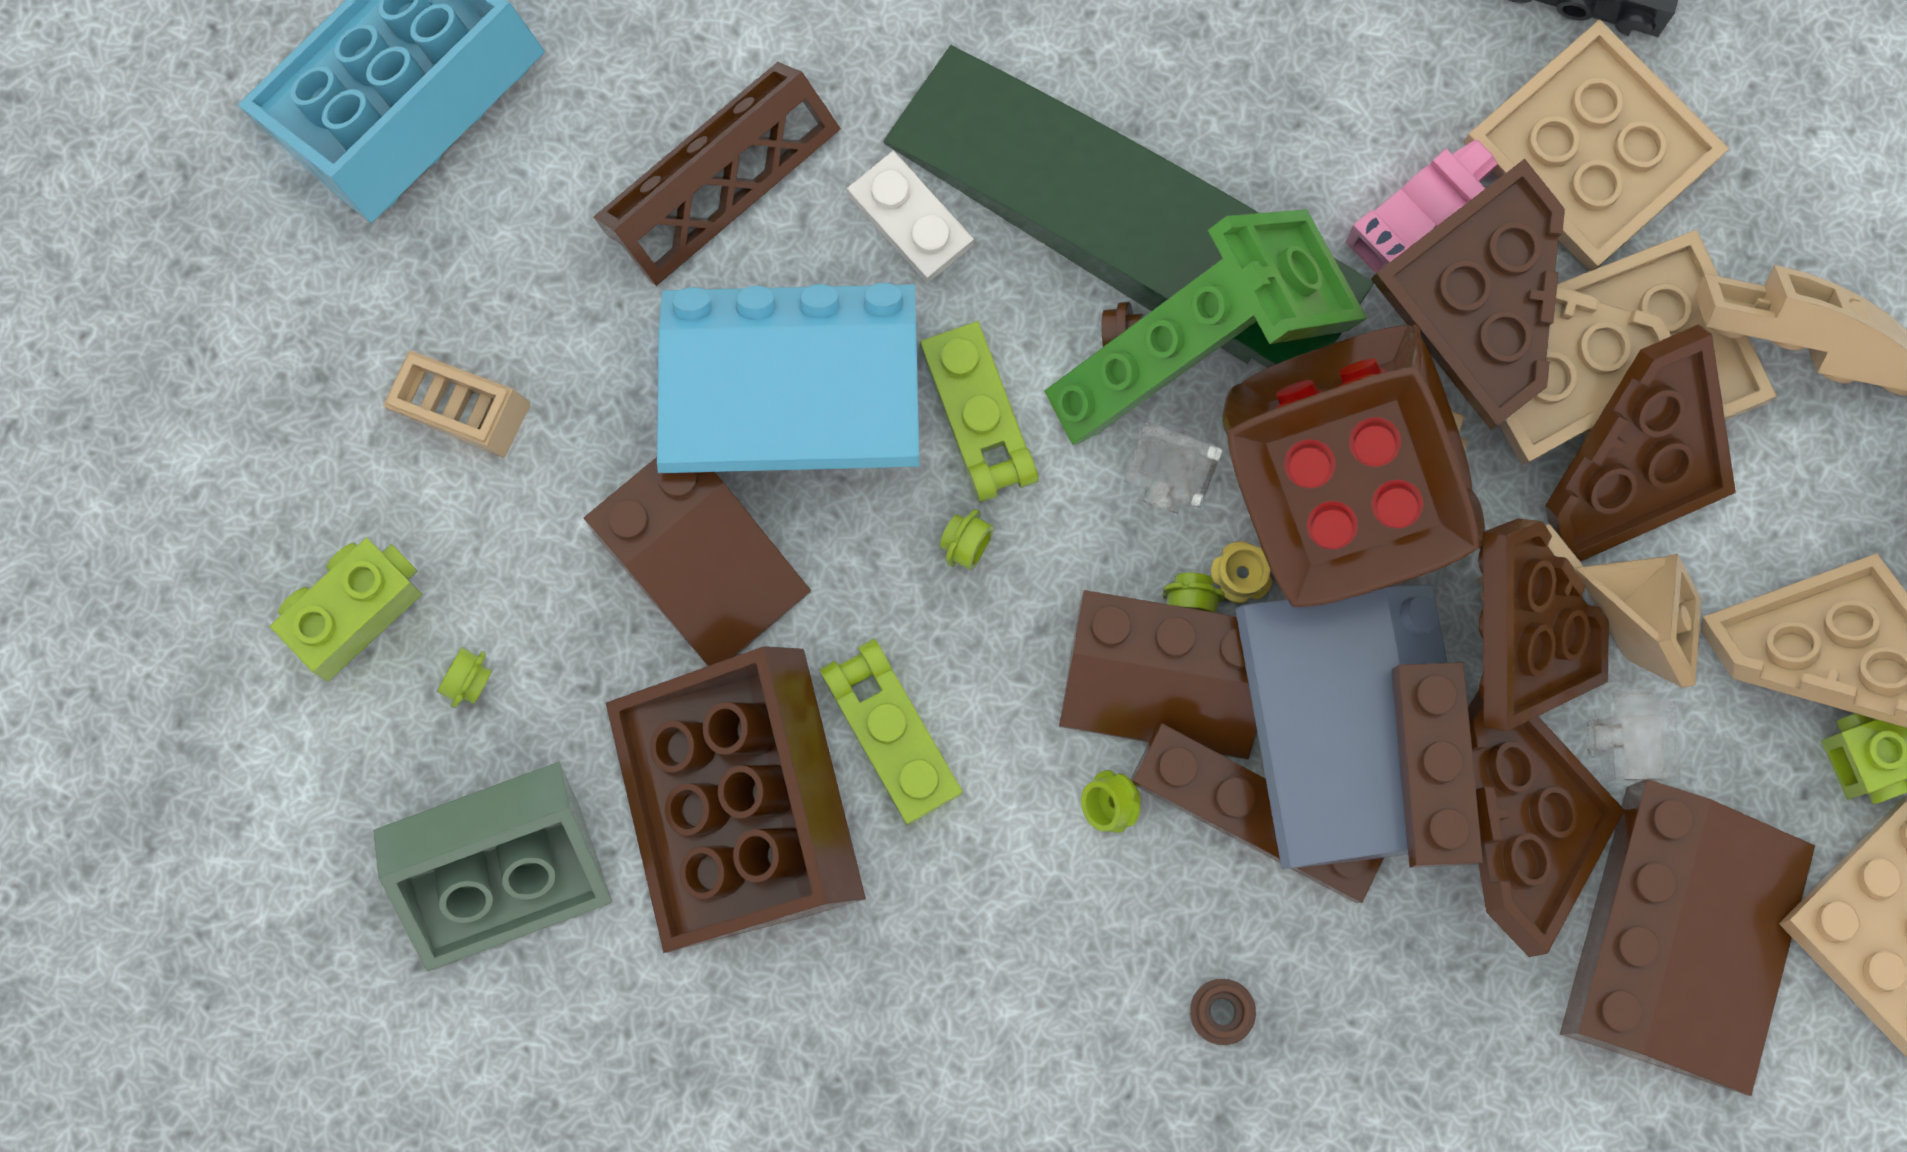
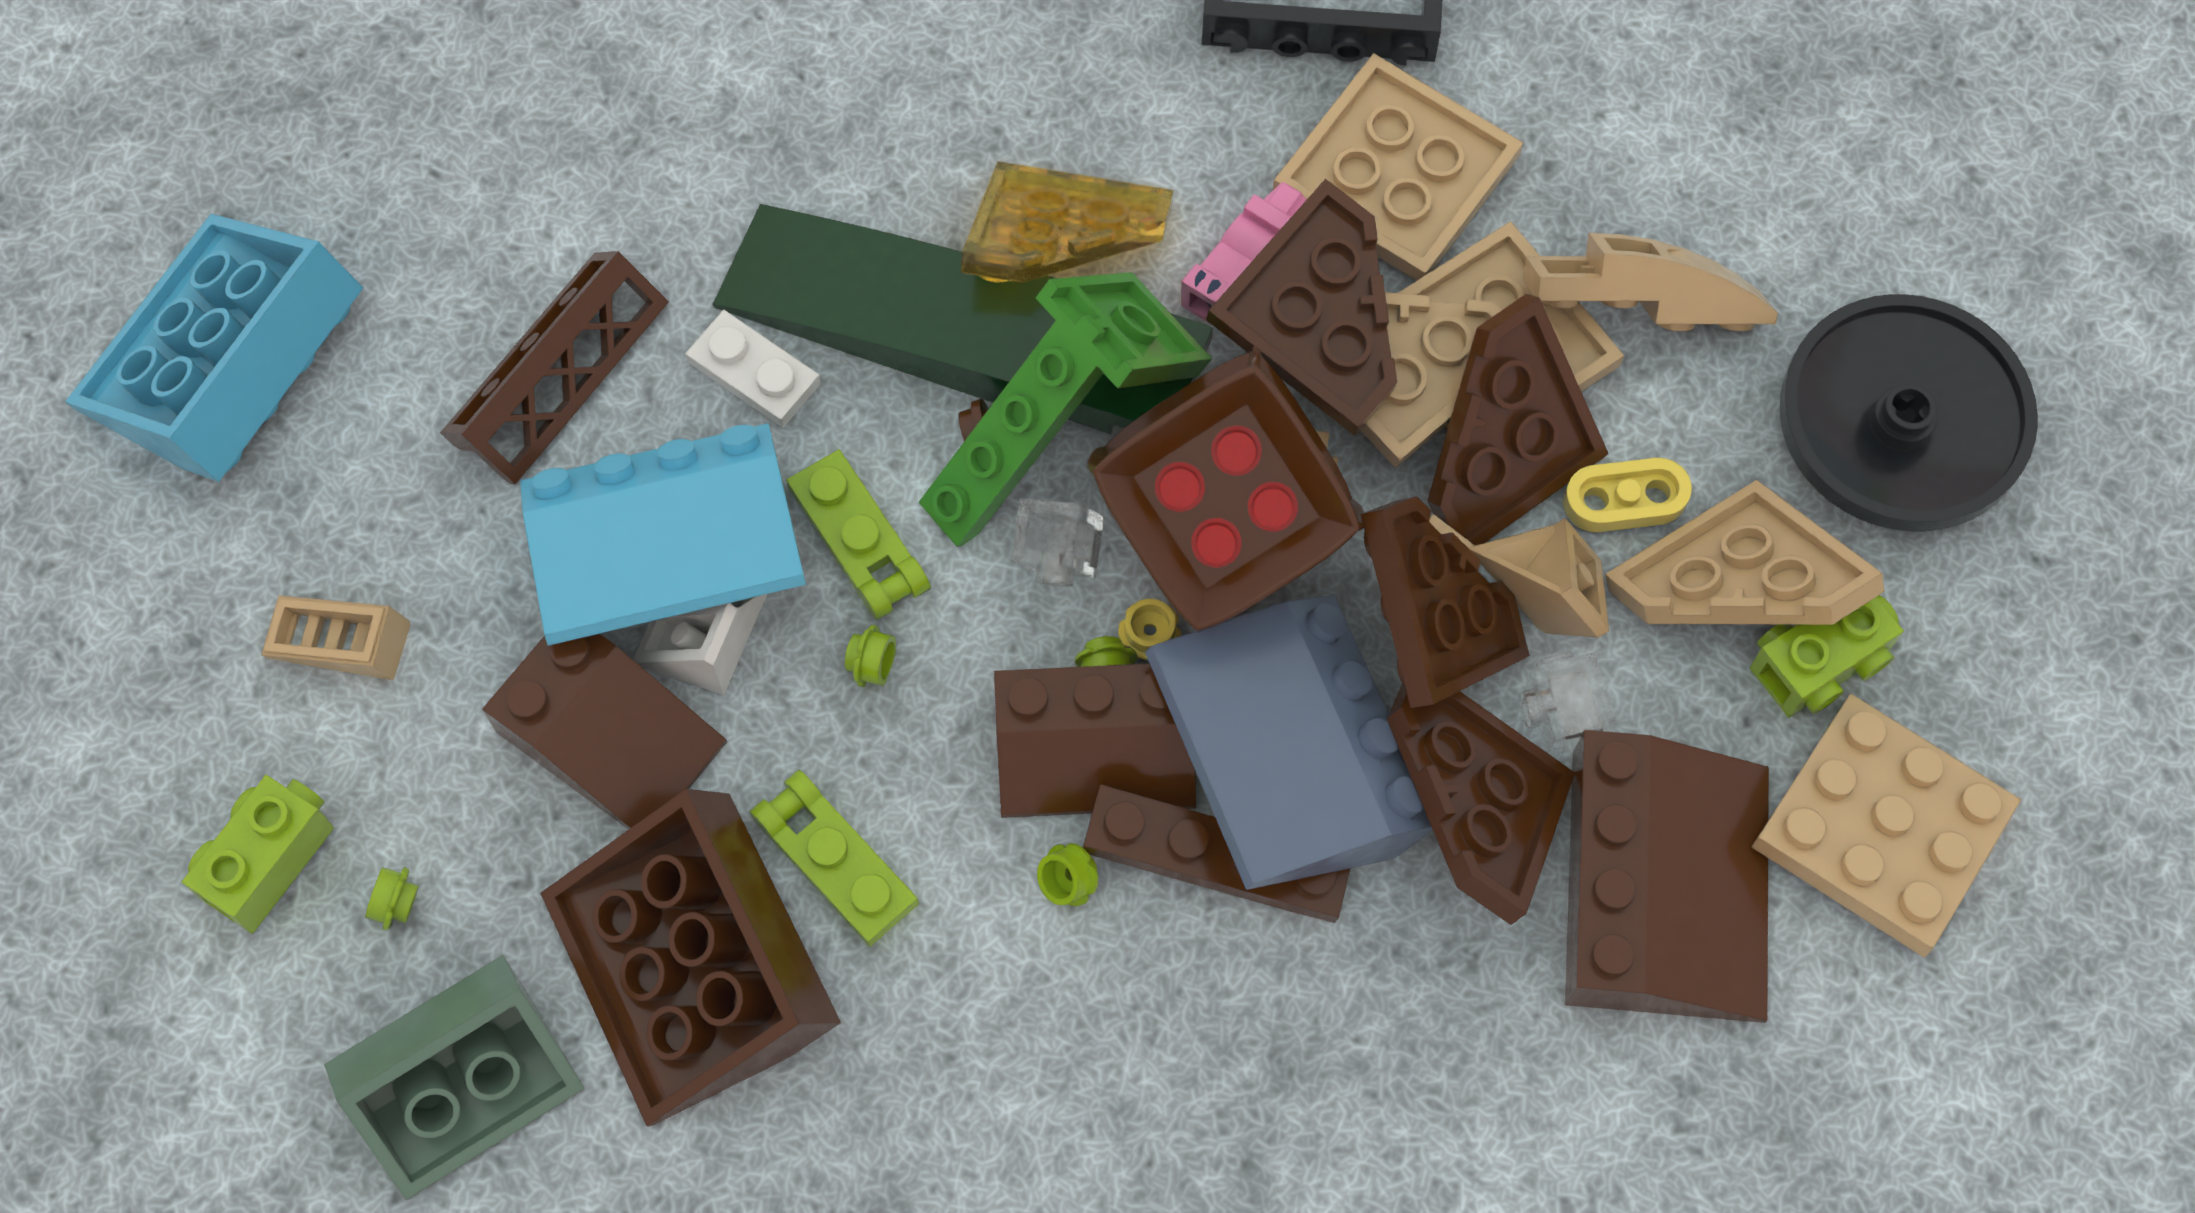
camera: 10 degrees left, 10 degrees down
(801, 498) = (700, 644): none -> white slope
(1243, 1007) = (1224, 1035): reddish brown plate -> none
(1244, 134) = (1058, 220): none -> clear yellow plate
(1436, 765) = (1374, 755): reddish brown plate -> none
(1741, 540) = (1624, 494): none -> light yellow plate

